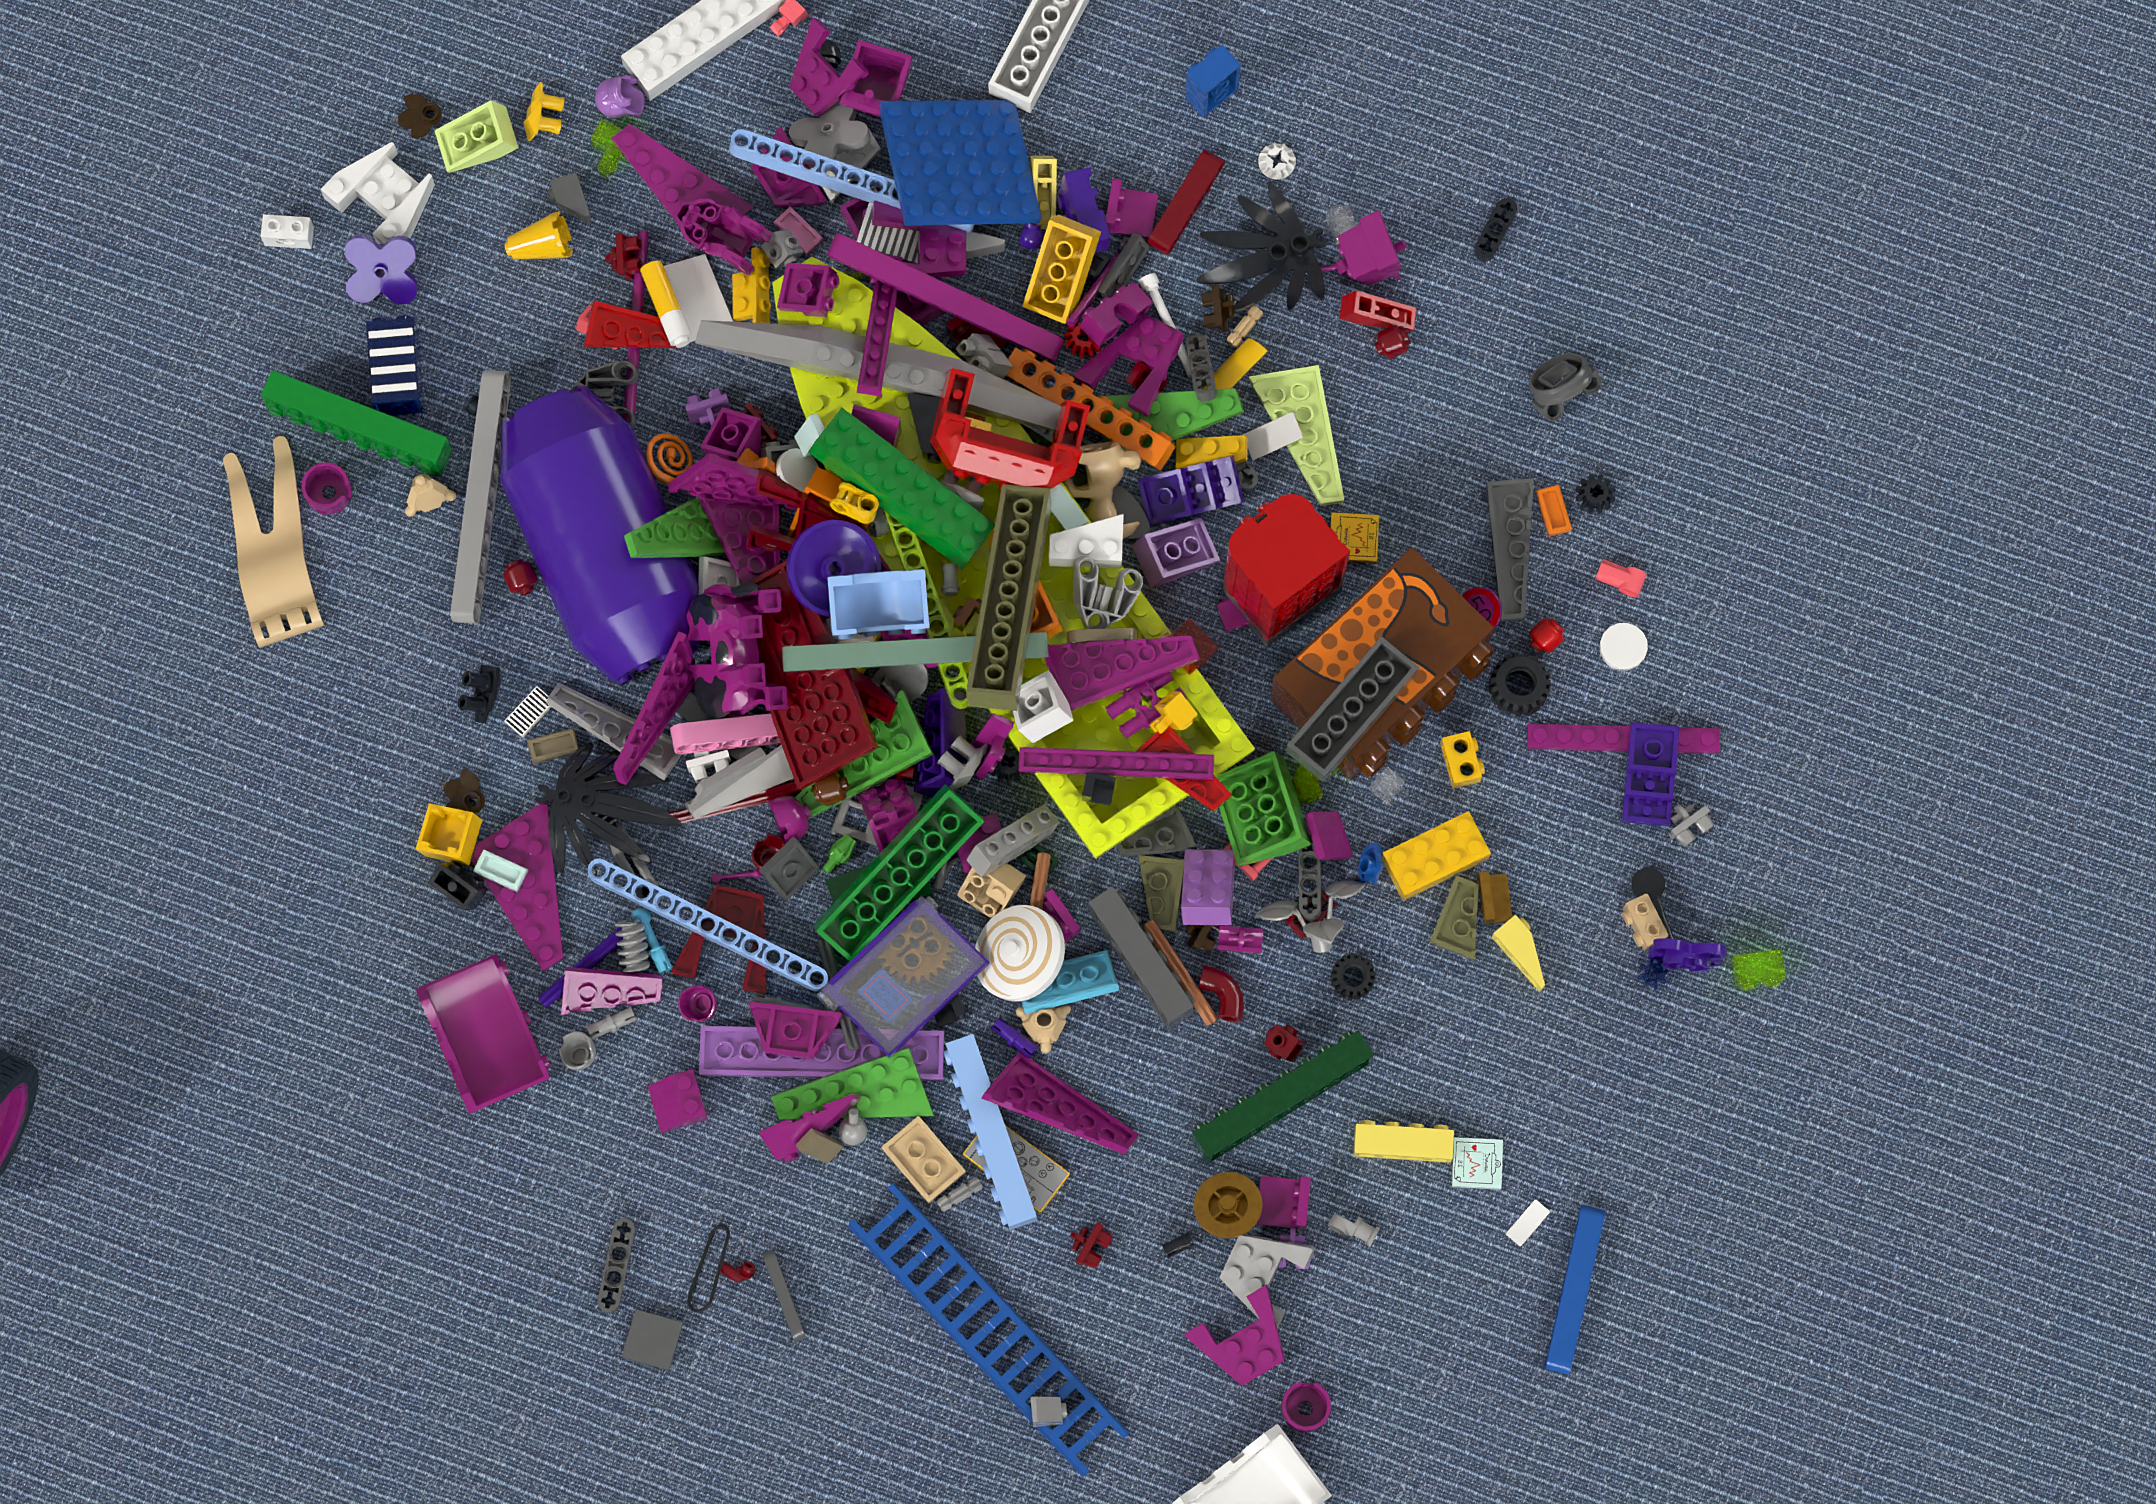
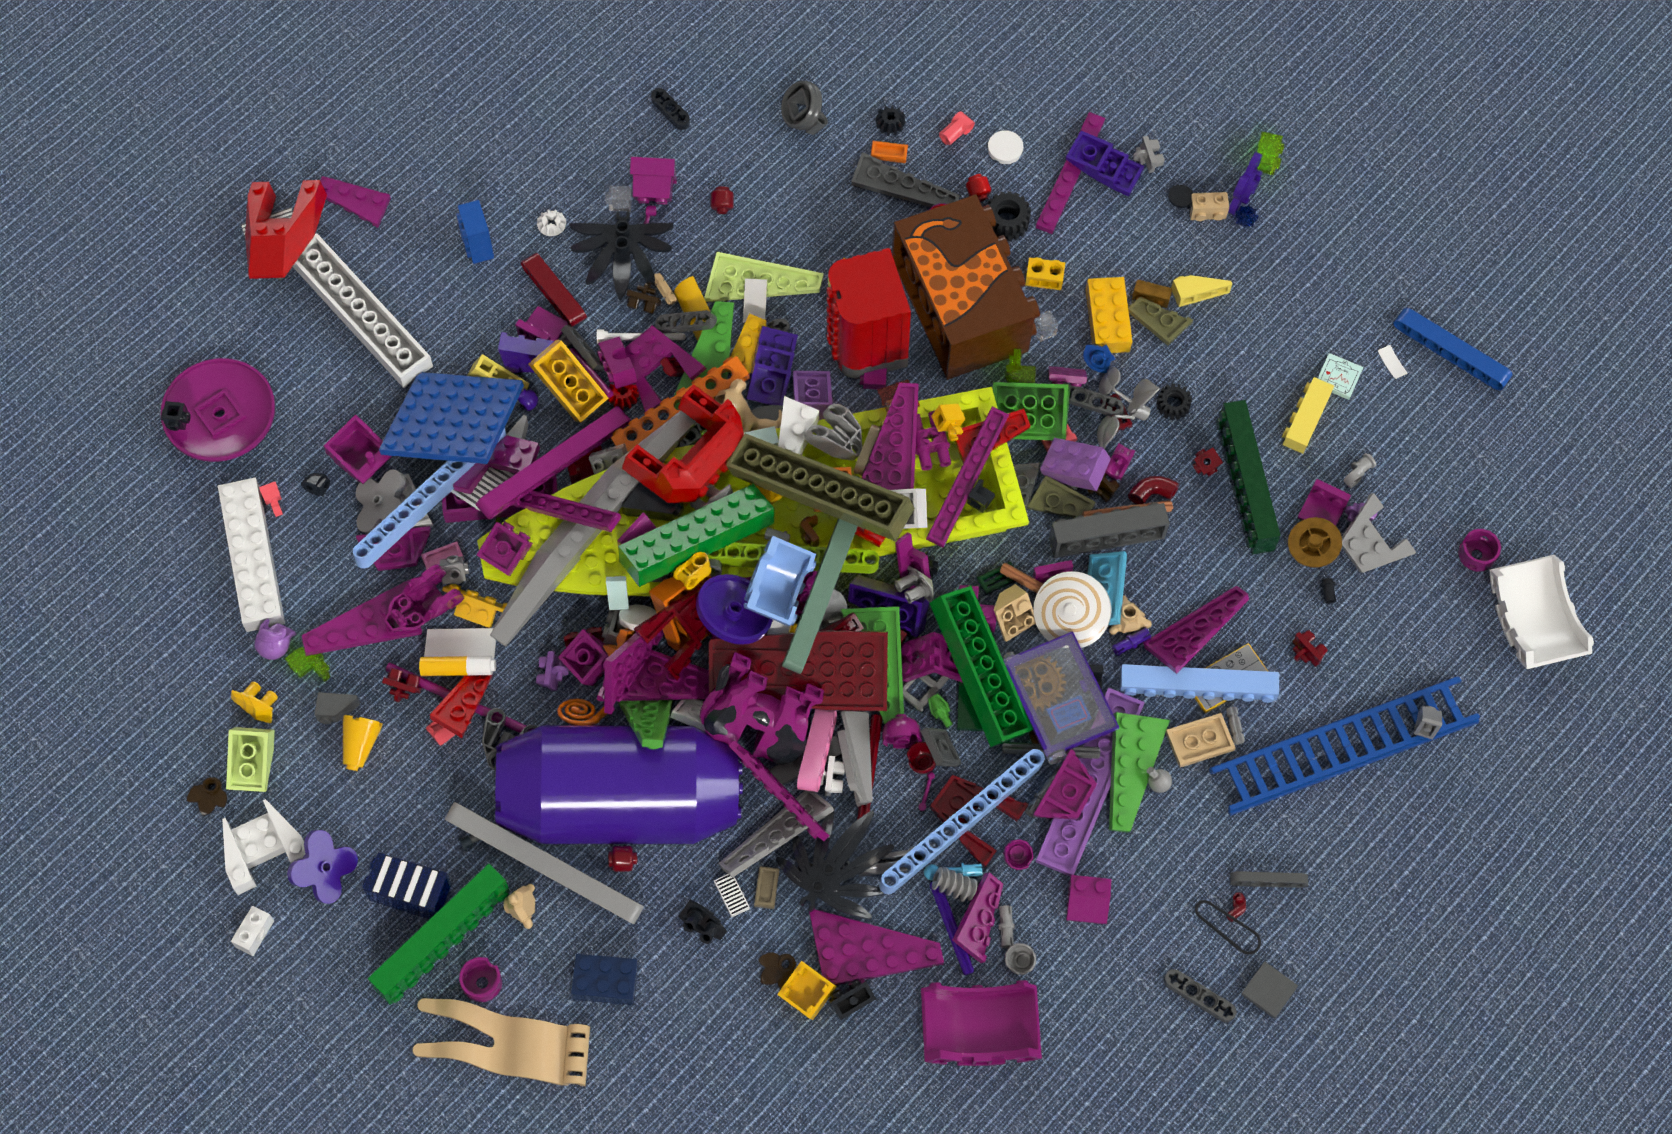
camera: 70 degrees left, 10 degrees down
(378, 617) = (605, 979): none -> dark blue brick
(500, 870) = (853, 962): light aqua tile -> none
(786, 1134) = (1150, 820): magenta wedge -> none
(815, 79) = (334, 494): magenta wing -> none
(819, 1145) = (1165, 806): dark tan tile -> none
(831, 789) = (896, 690): reddish brown head -> none
(1012, 841) = (987, 579): light grey brick -> none
(1249, 1350) = (1424, 570): magenta wing -> none
(1352, 709) = (1001, 299): dark grey brick -> none
(1376, 311) = (693, 202): red slope -> none

